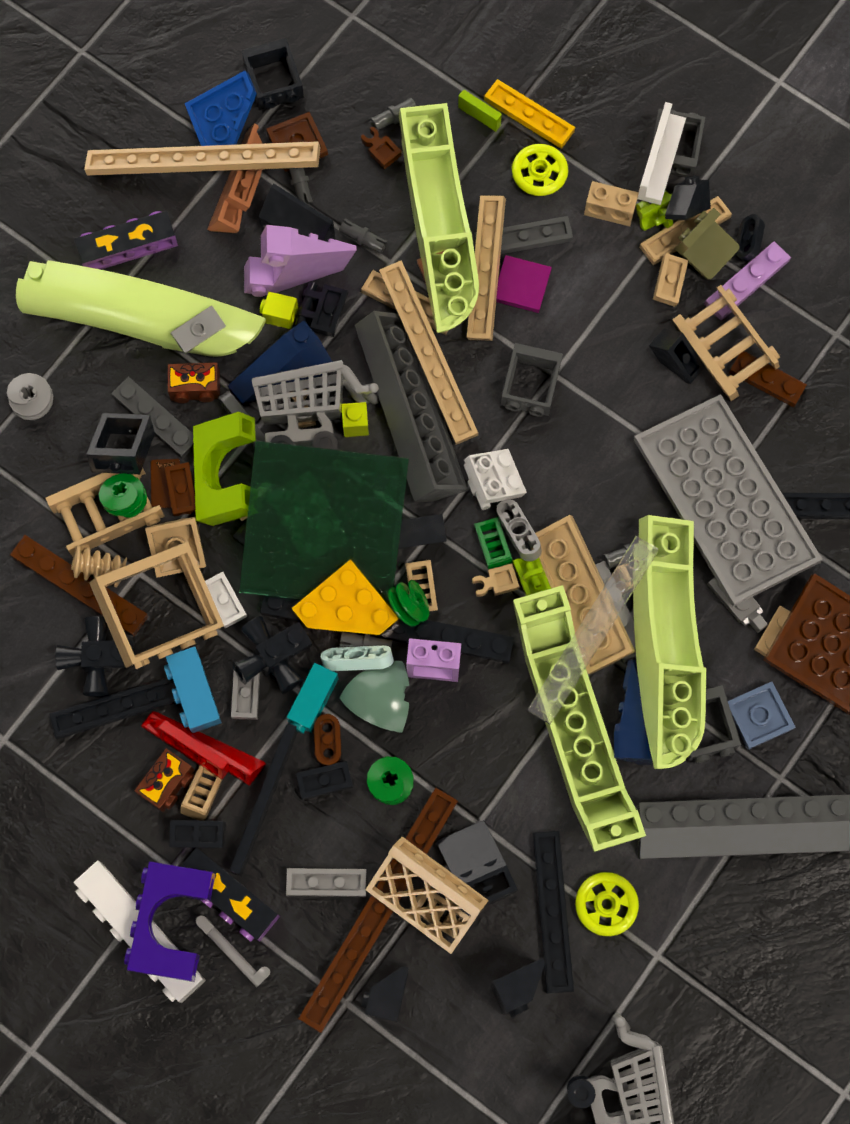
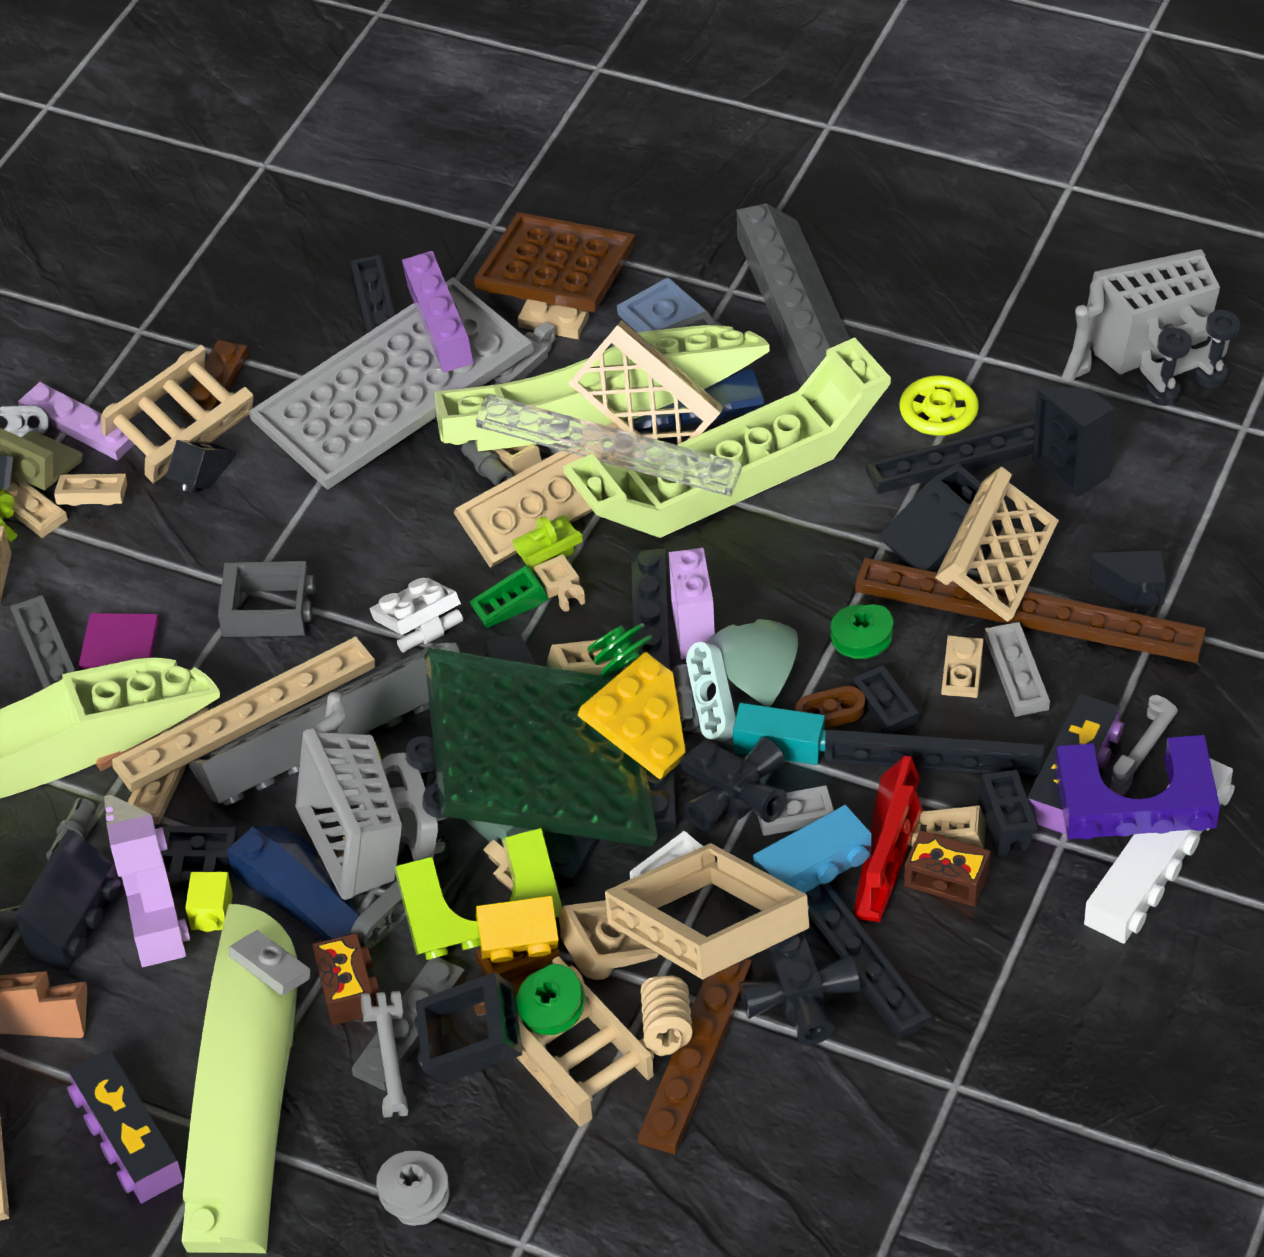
camera: 100 degrees left, 25 degrees down
(93, 396) = (383, 1015): none -> light grey hinge
(183, 484) = (517, 927): none -> yellow brick
(325, 838) = (962, 667): none -> tan slope
(487, 262) = (43, 669): tan plate -> none
(519, 539) = (485, 552): light grey beam -> none
(643, 671) = (657, 368): none -> fence
(774, 535) = (437, 311): none -> medium lavender brick

